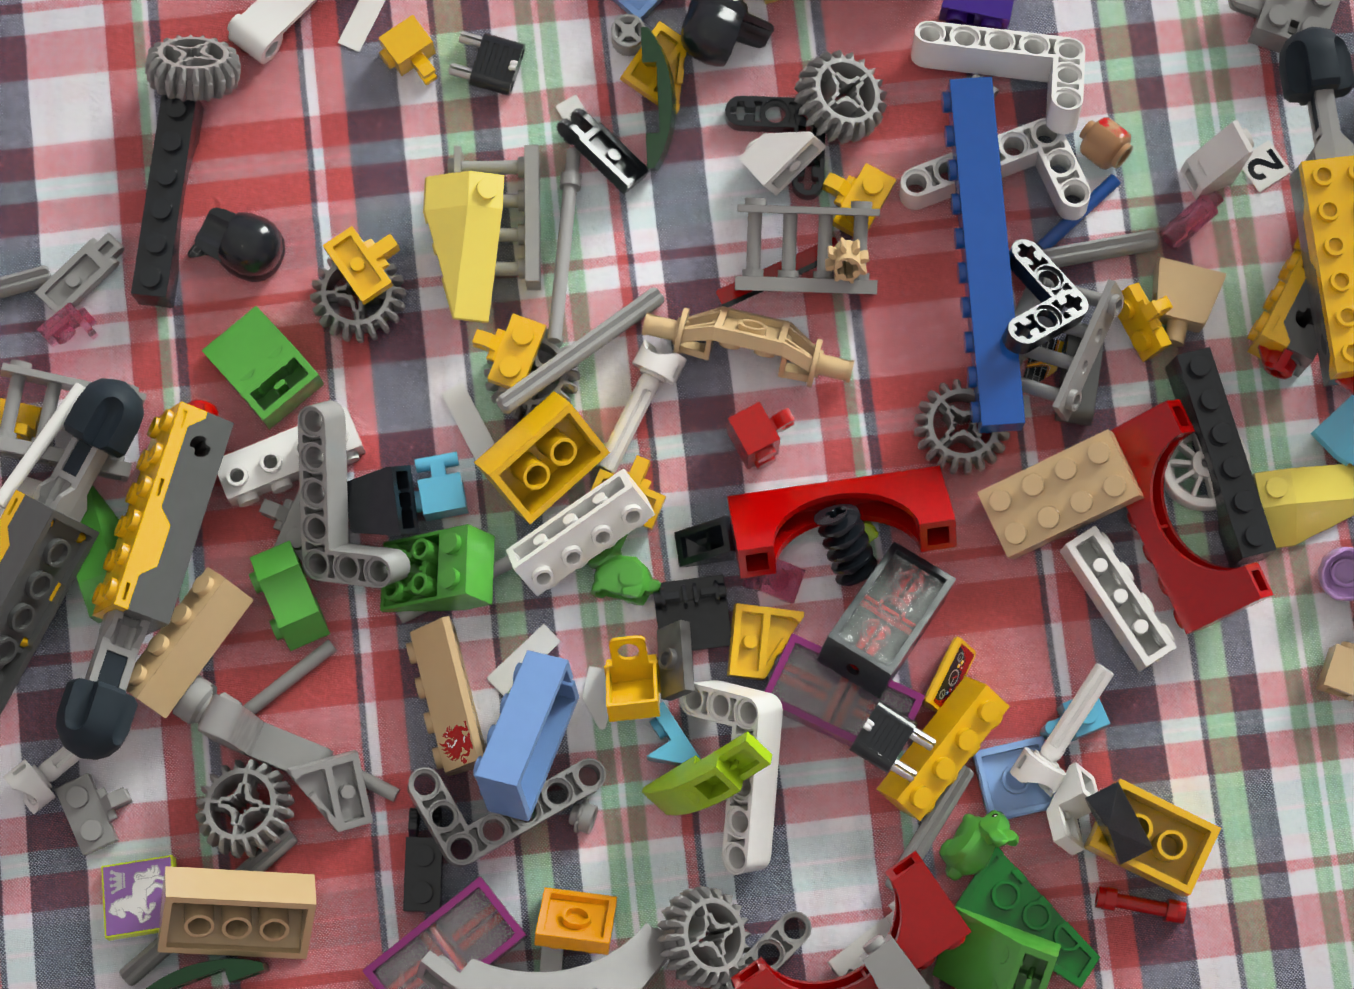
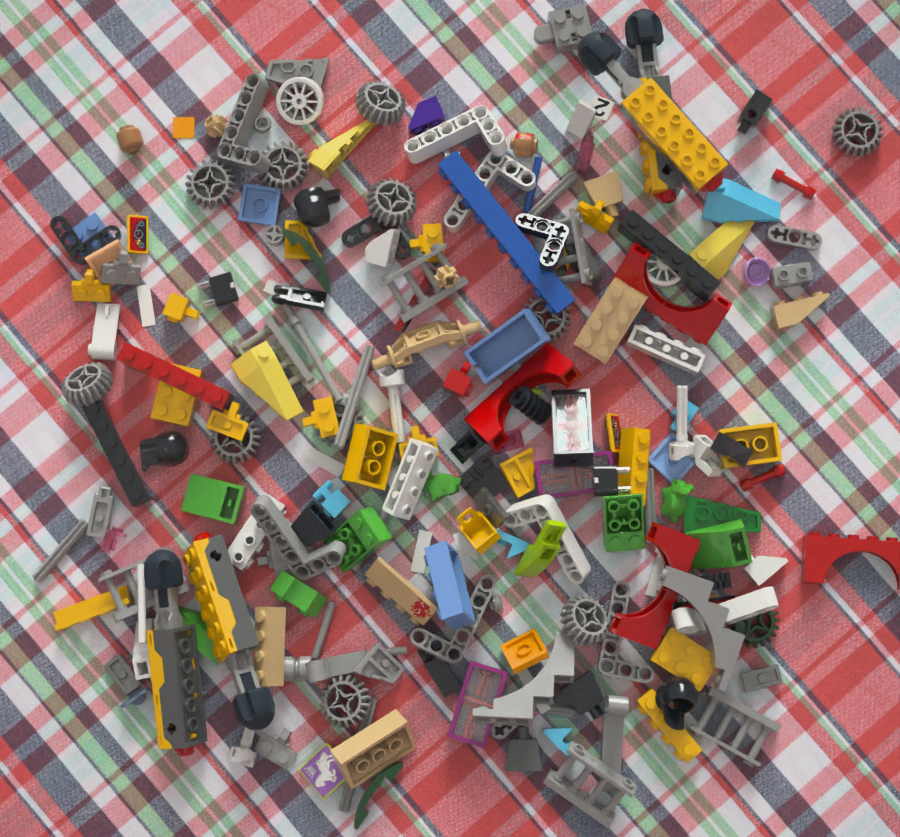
camera: 35 degrees left, 5 degrees up
(317, 174) = (174, 405): none -> yellow brick
(330, 141) = (176, 377): none -> red arch
(868, 822) = (623, 522): none -> bright green slope
(871, 427) = (507, 345): none -> medium blue piece

